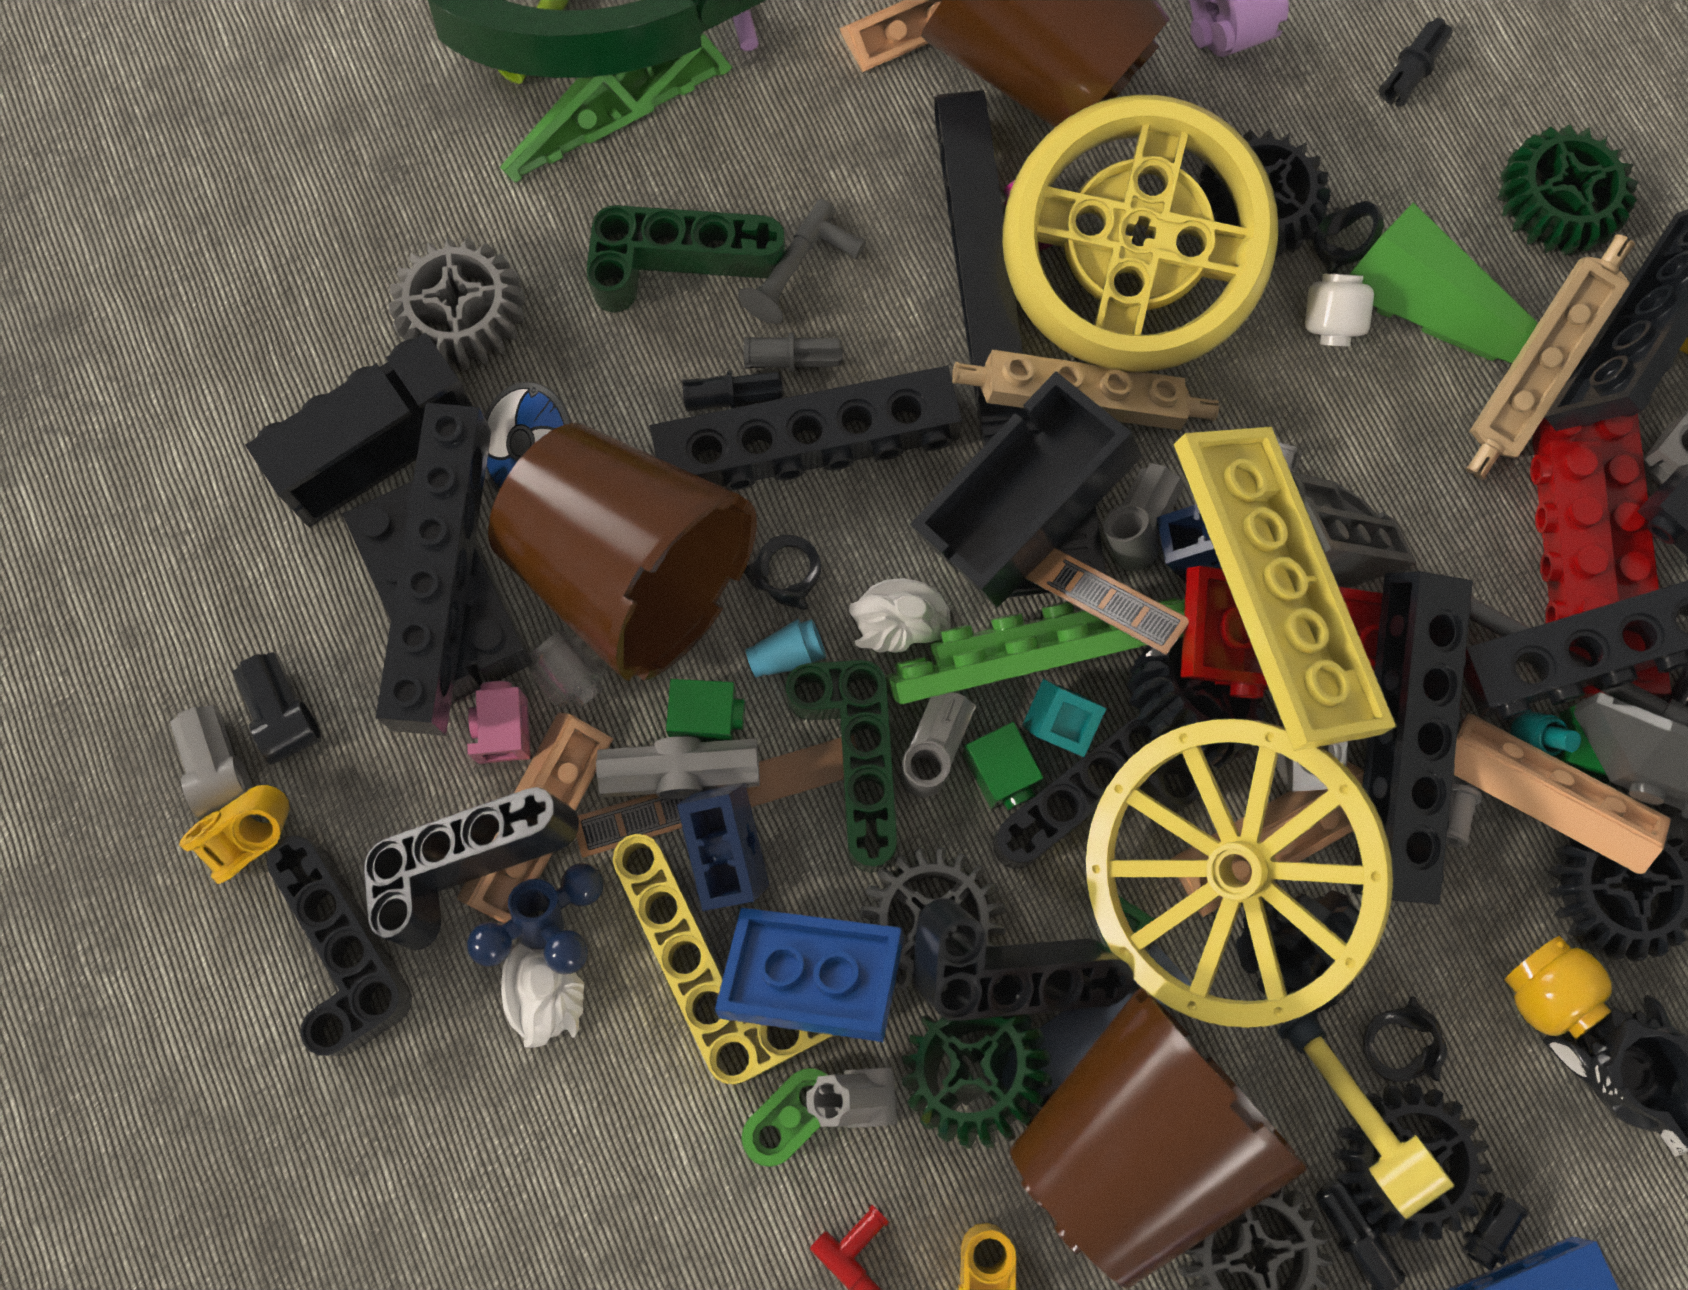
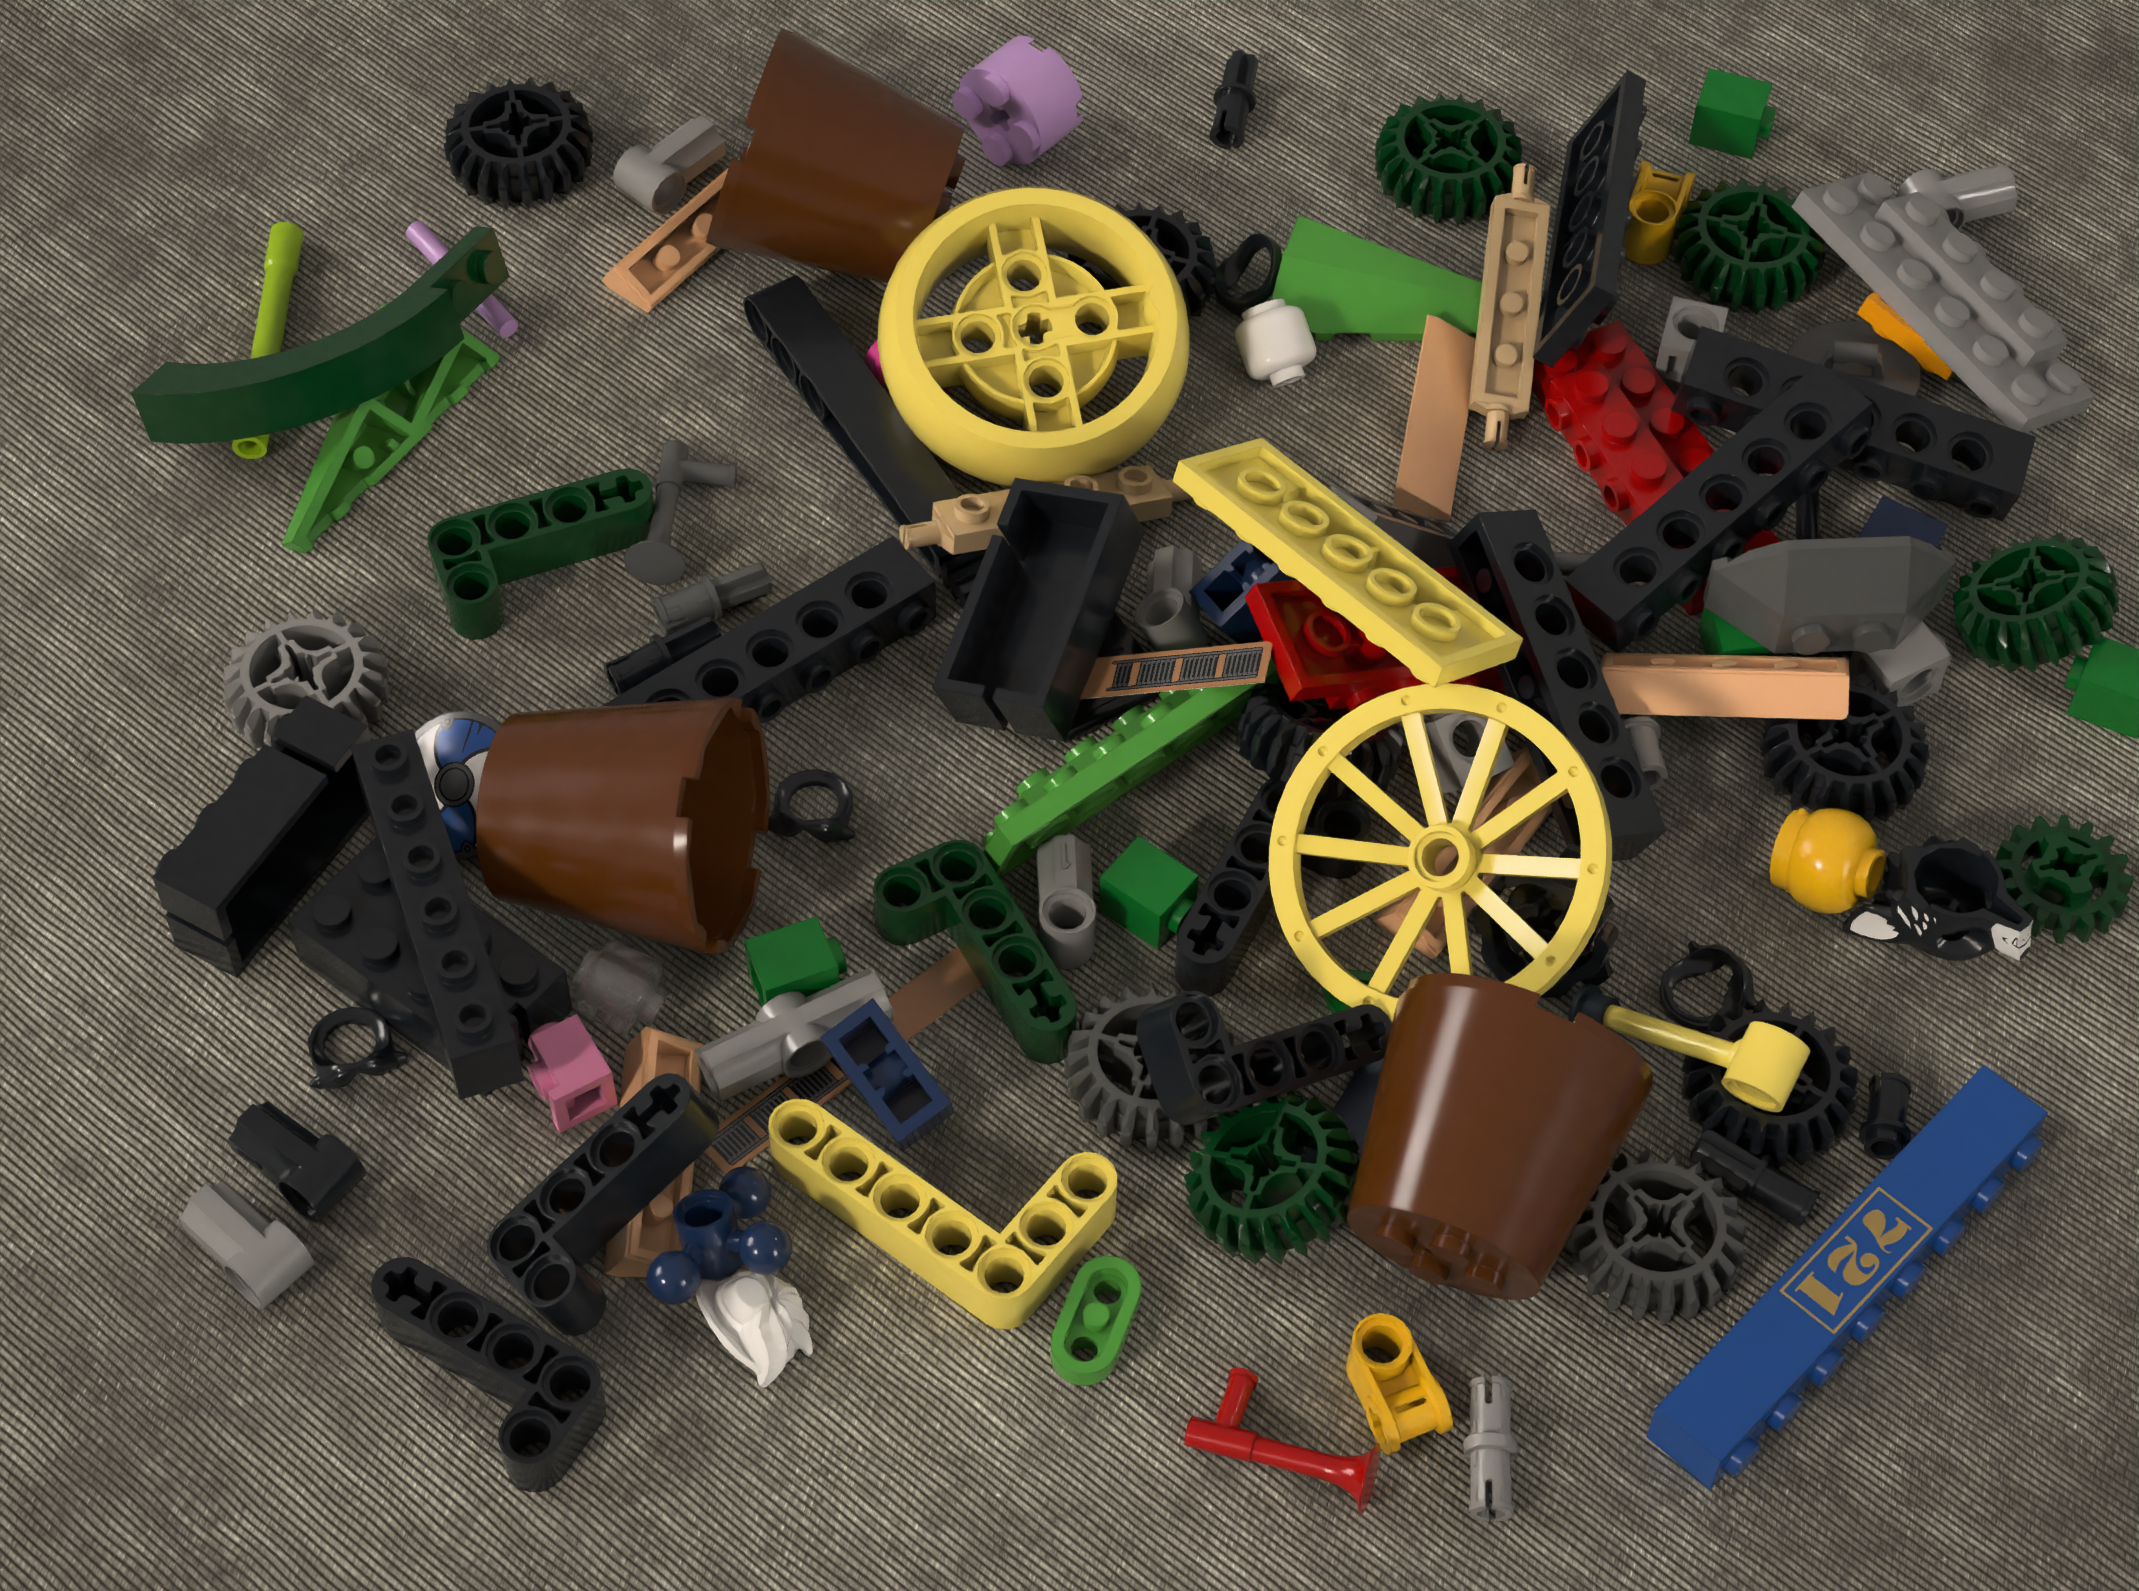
camera: 25 degrees left, 20 degrees down
(232, 837) = (319, 1296): yellow piece -> none
(336, 639) = (333, 1075): none -> black piece
(786, 649) = (852, 876): medium azure cone -> none
(811, 974) = (1047, 1145): blue plate -> none
(854, 1098) = (1160, 1257): light grey piece -> none
(899, 614) = (958, 799): white hat -> none
(1063, 717) = (1190, 814): teal brick -> none
(1437, 432) = (1436, 421): none -> light nougat slope
(1545, 733) = (1690, 637): teal cylinder -> none

